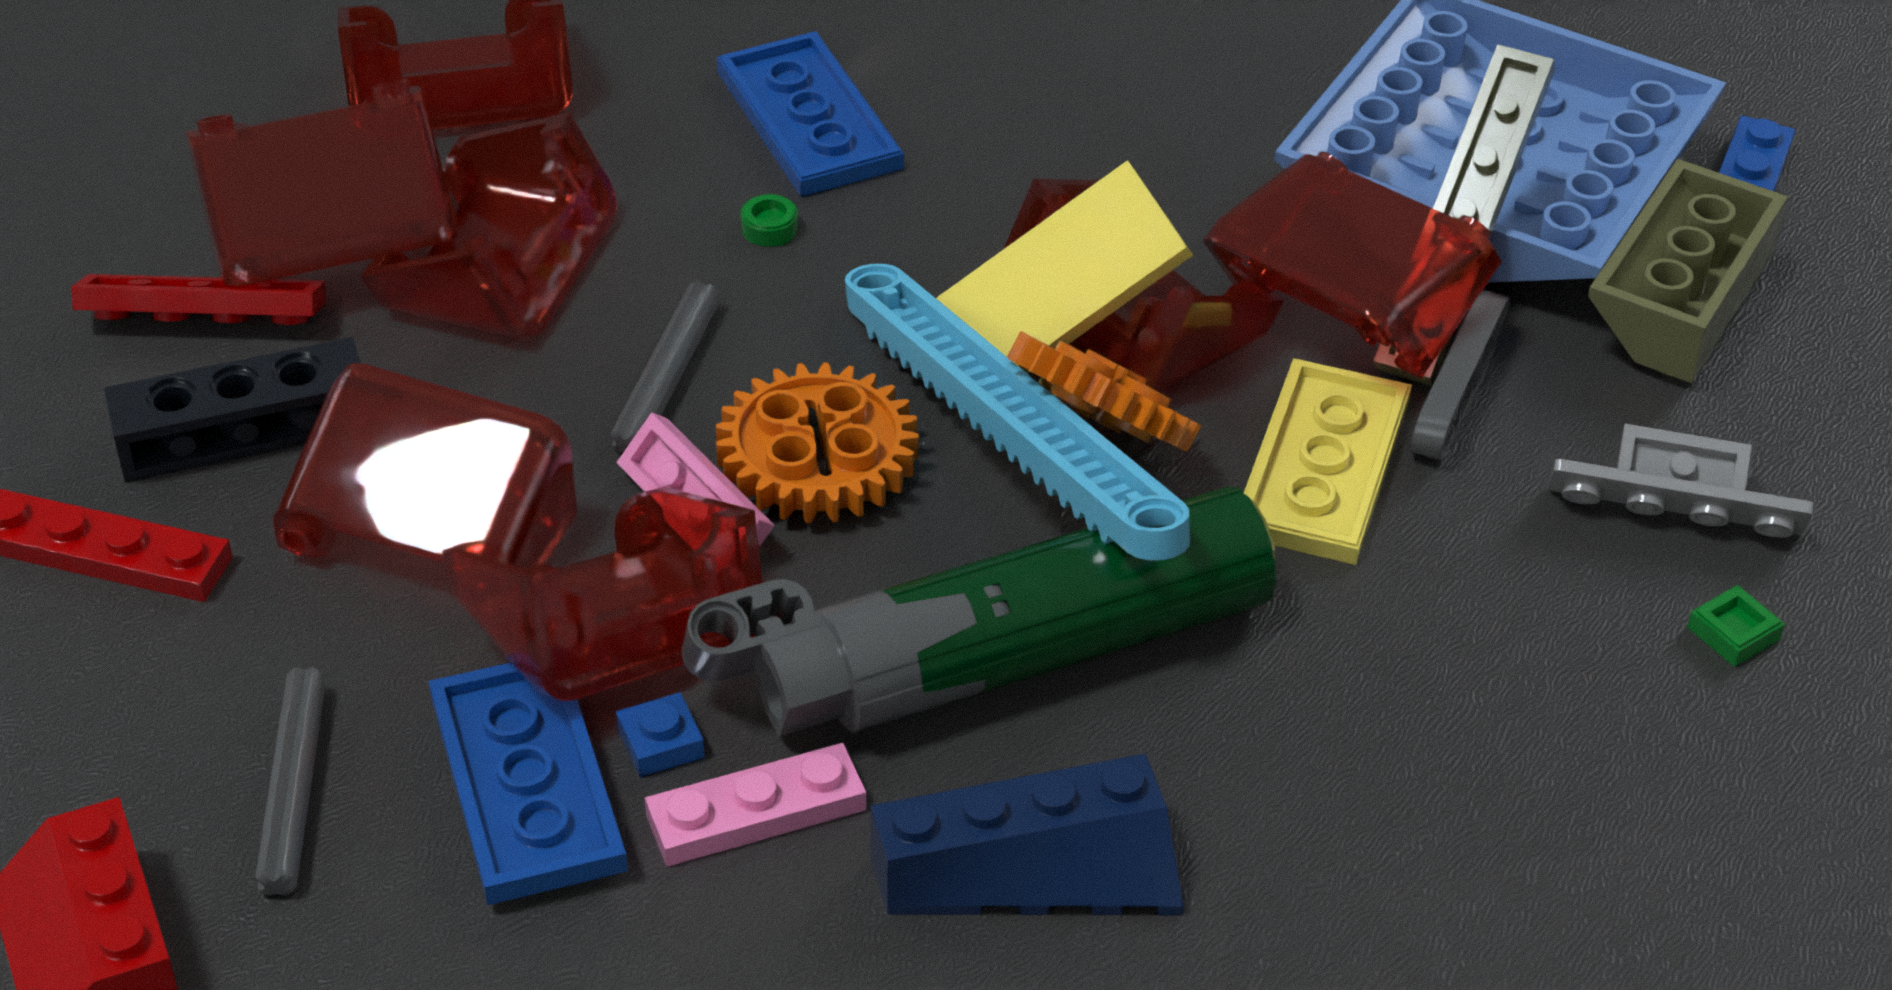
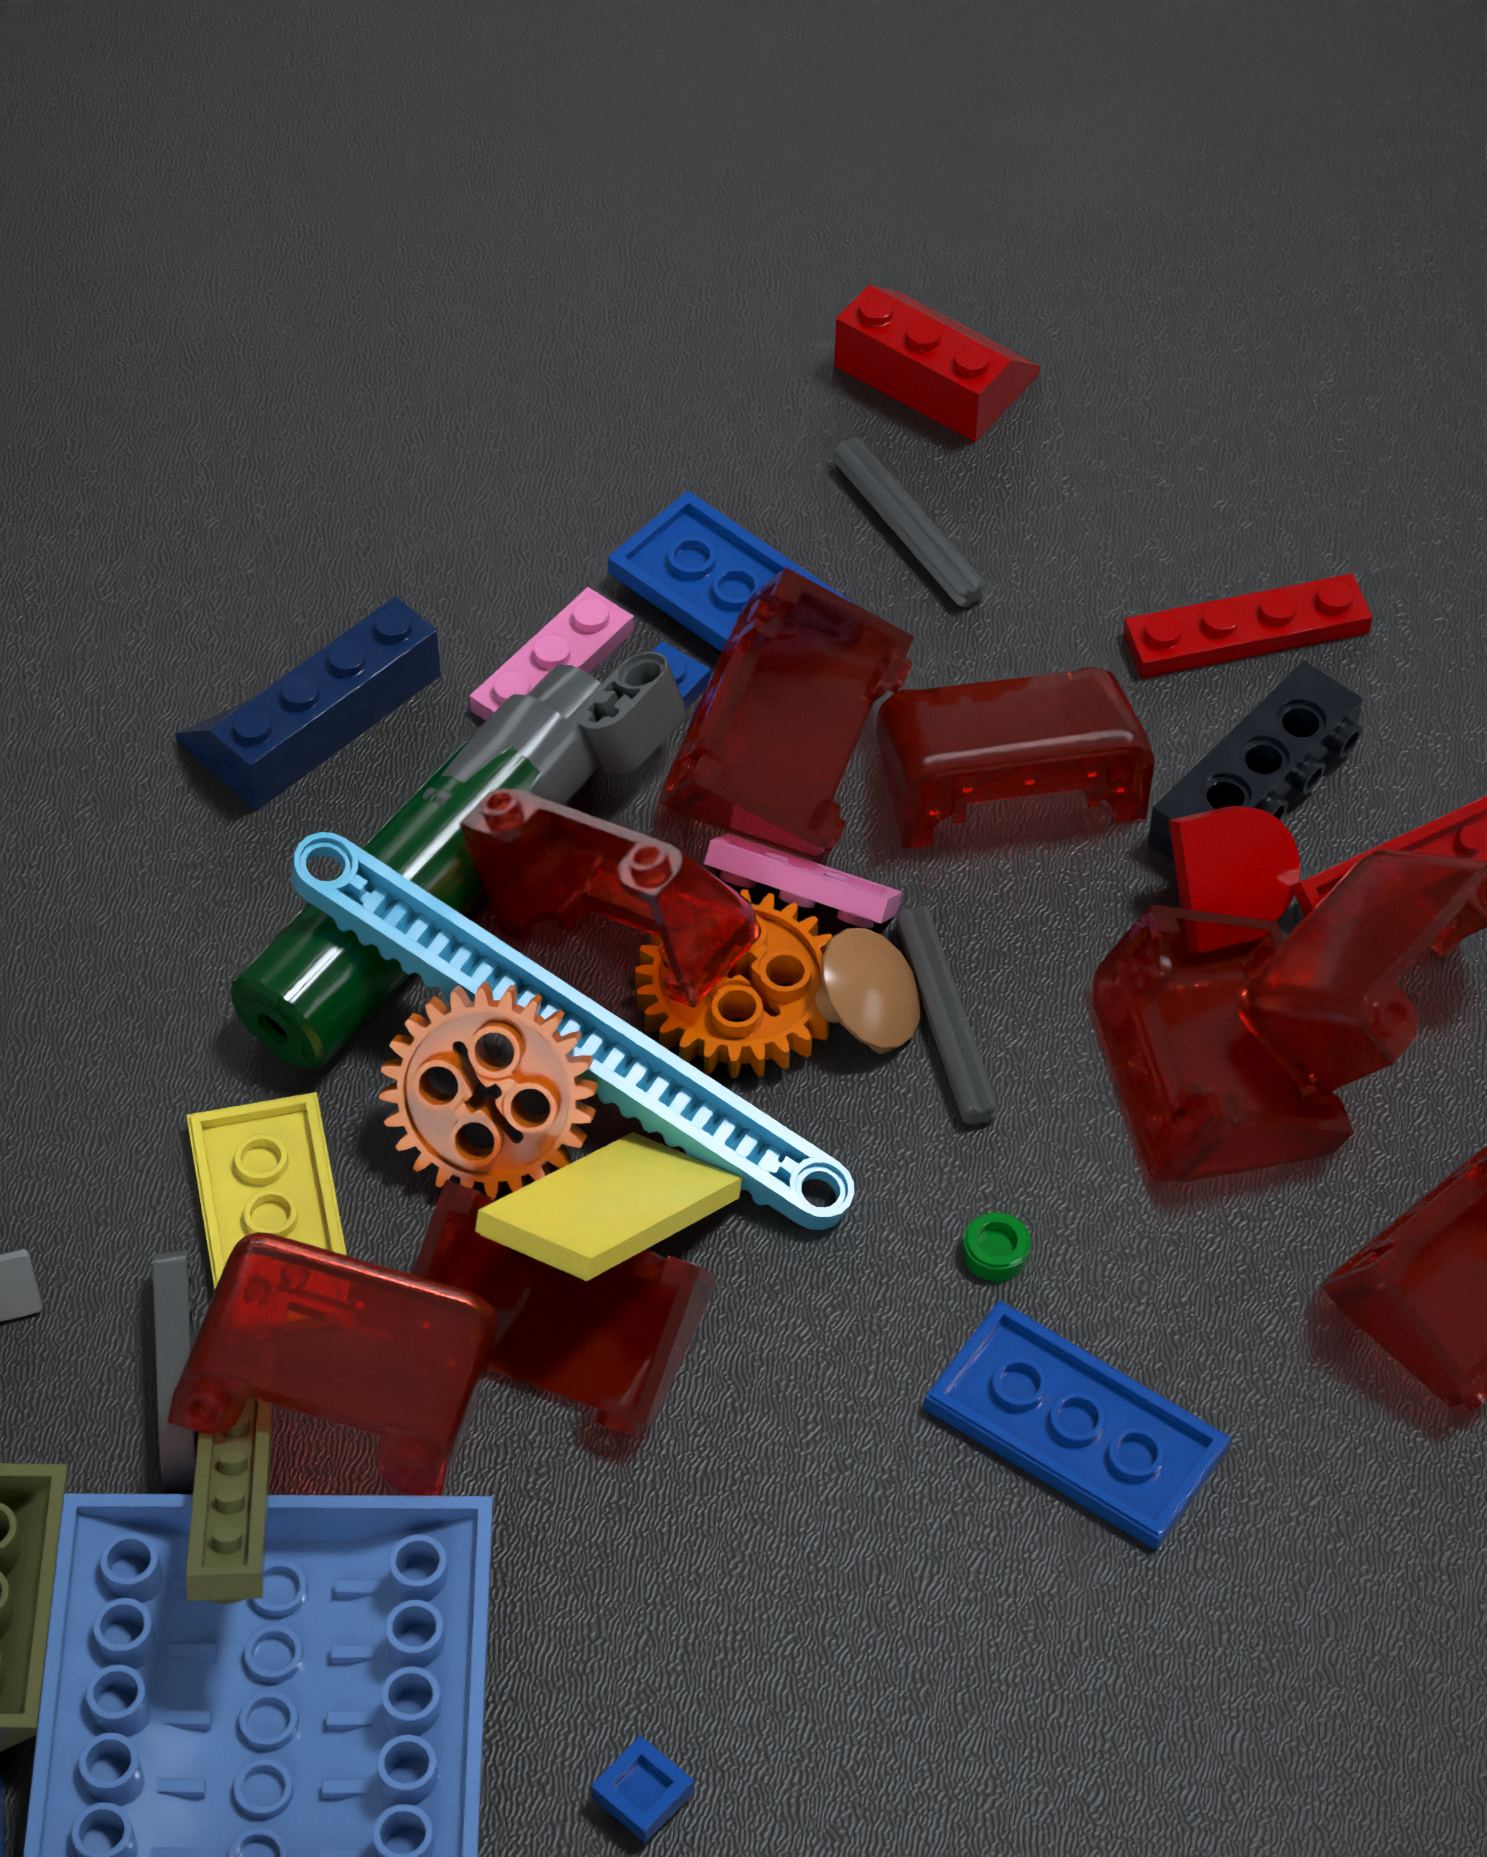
camera: 150 degrees right, 10 degrees up
(362, 324) = (1235, 862): none -> red tile
(713, 379) = (869, 989): none -> medium nougat dish
(864, 476) = (560, 863): none -> clear red windscreen
(1258, 46) = (642, 1789): none -> blue plate

